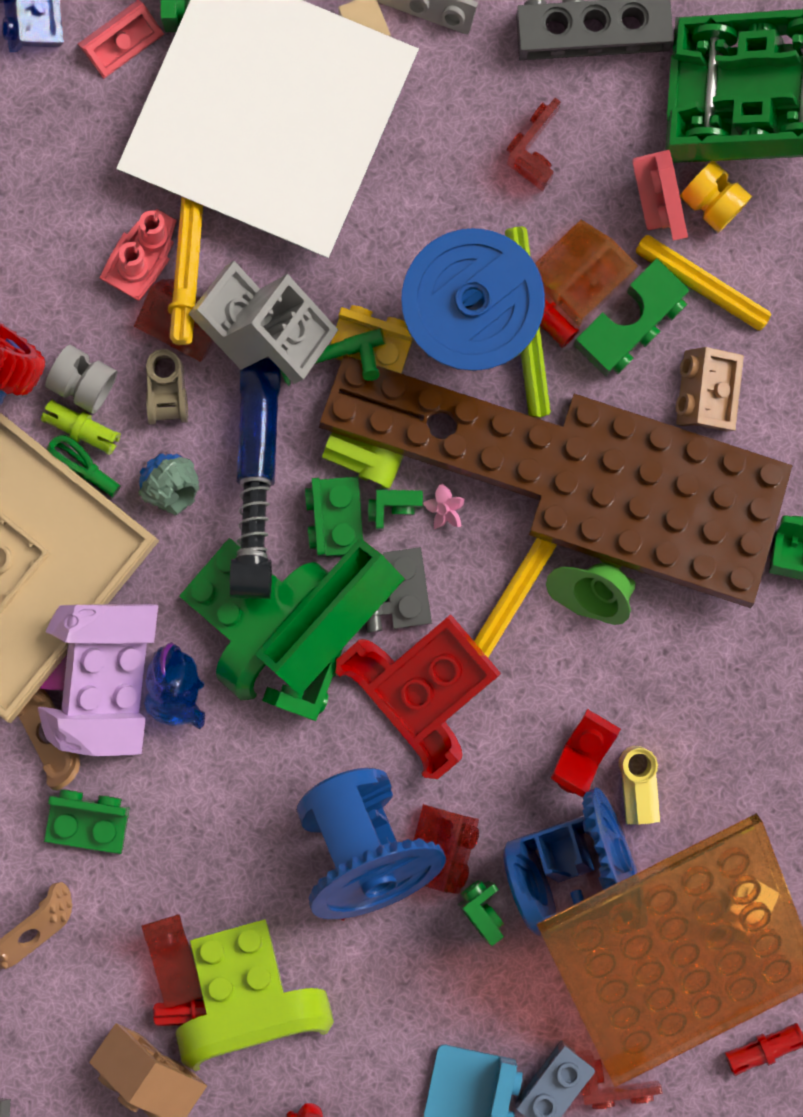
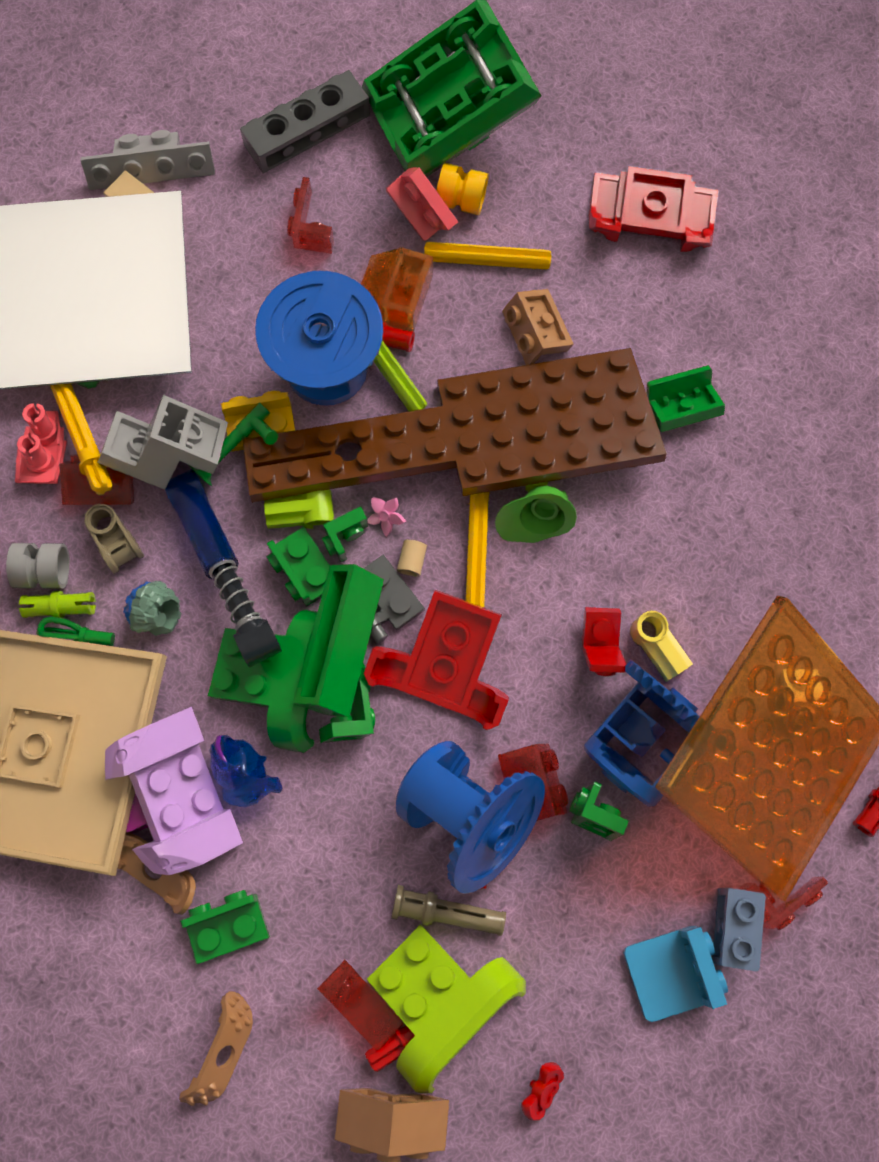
camera: 30 degrees left, 10 degrees down
(281, 910) = (429, 909): none -> dark tan pin
(447, 566) = (411, 558): none -> tan hinge
(658, 296) = (442, 329): green arch -> none

